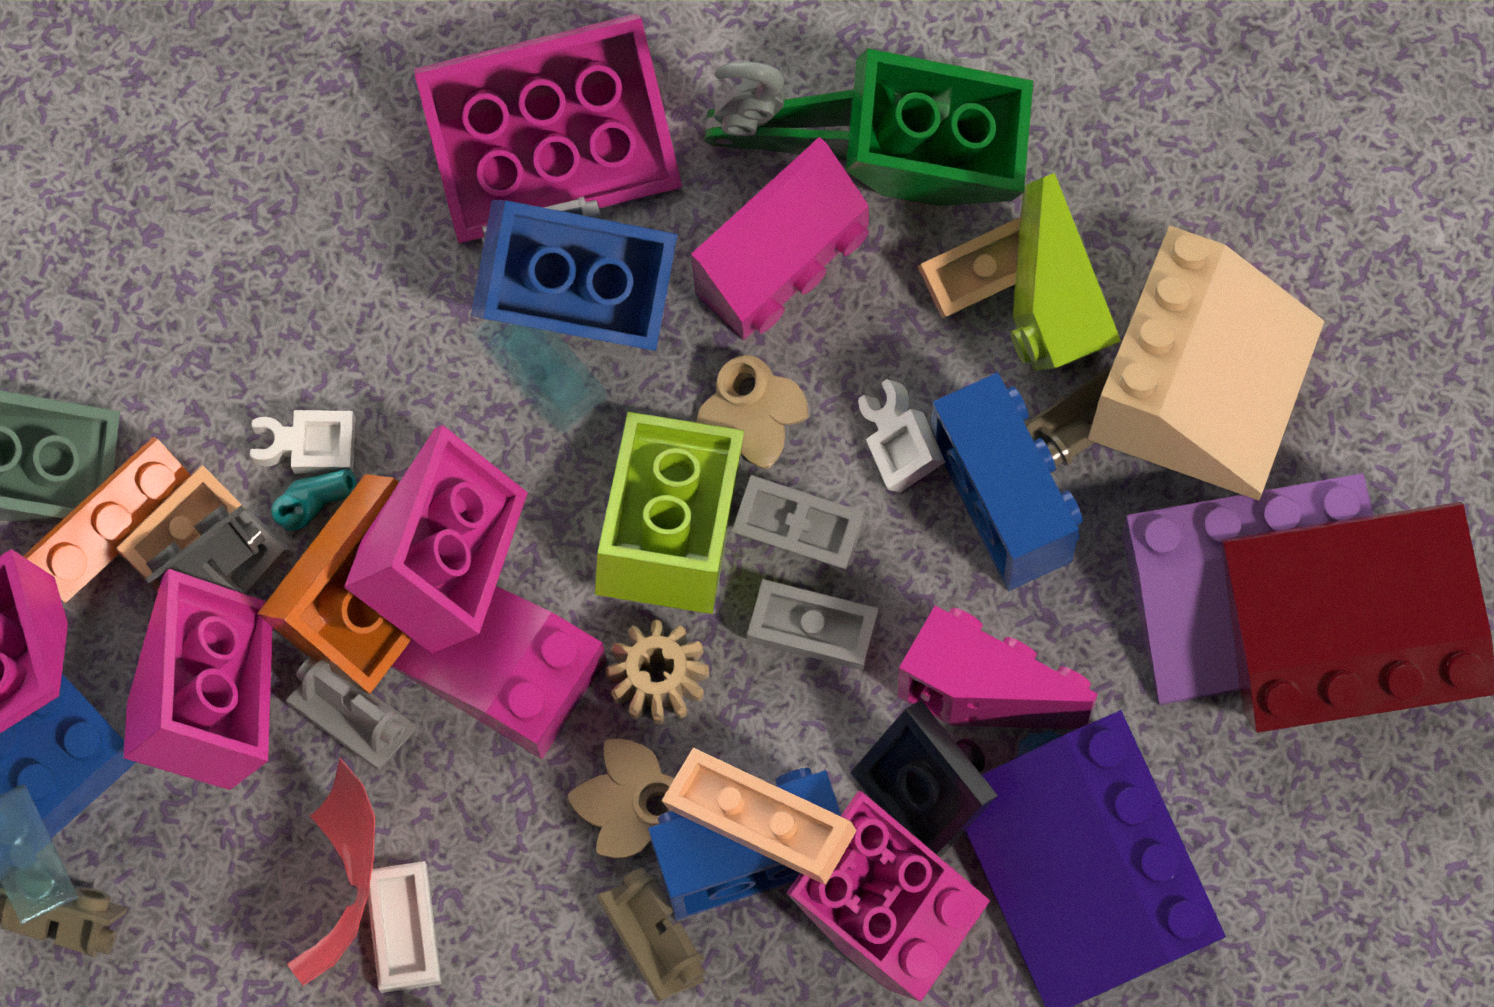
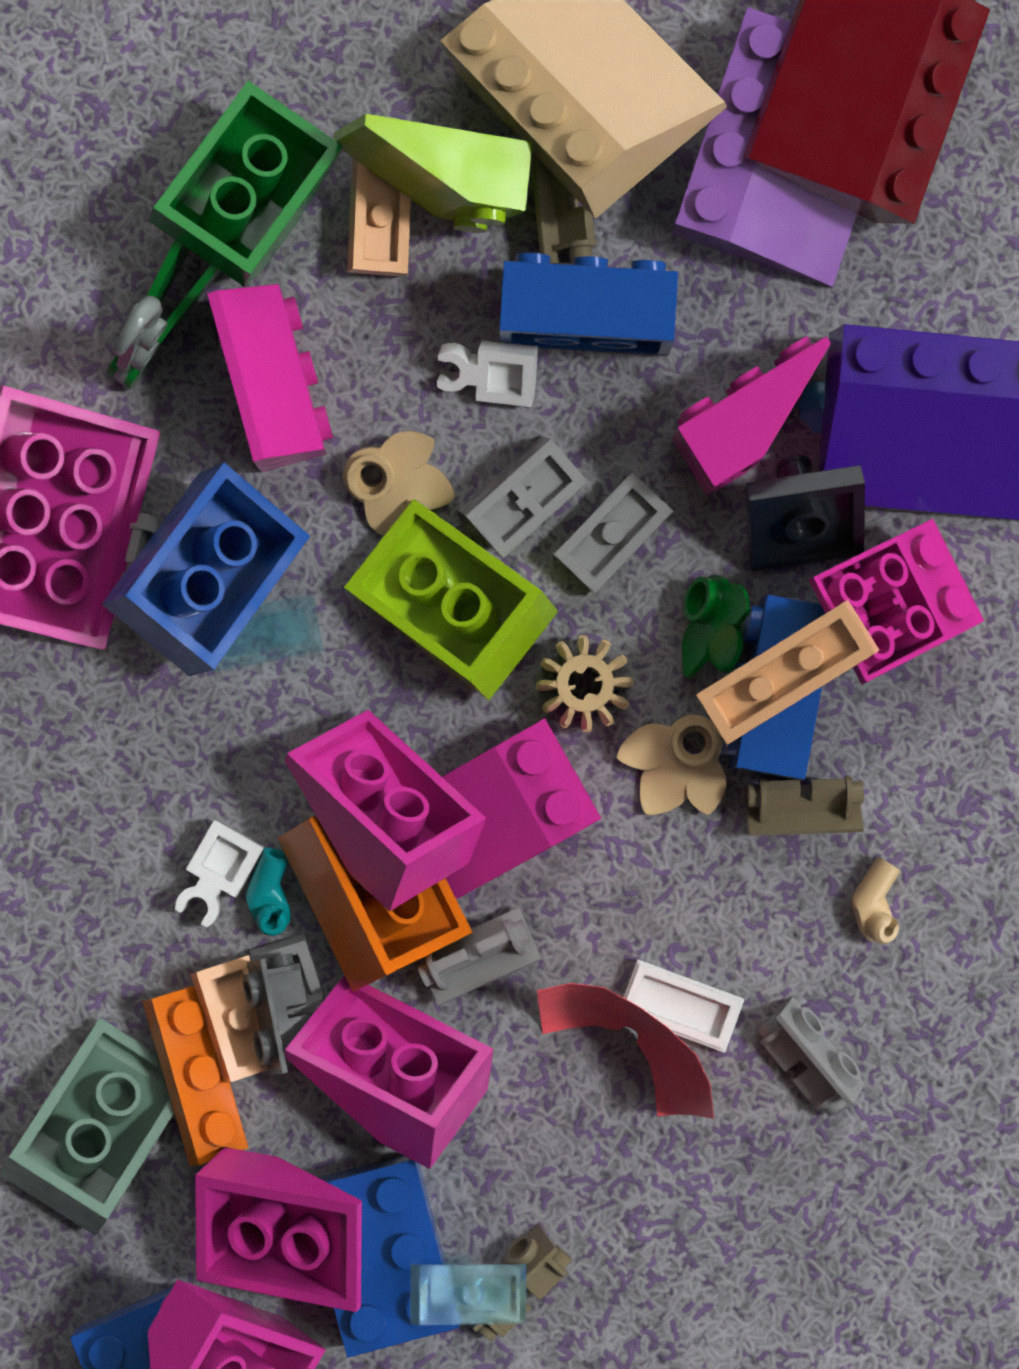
camera: 70 degrees left, 15 degrees up
(792, 748) = (714, 629): none -> green plate

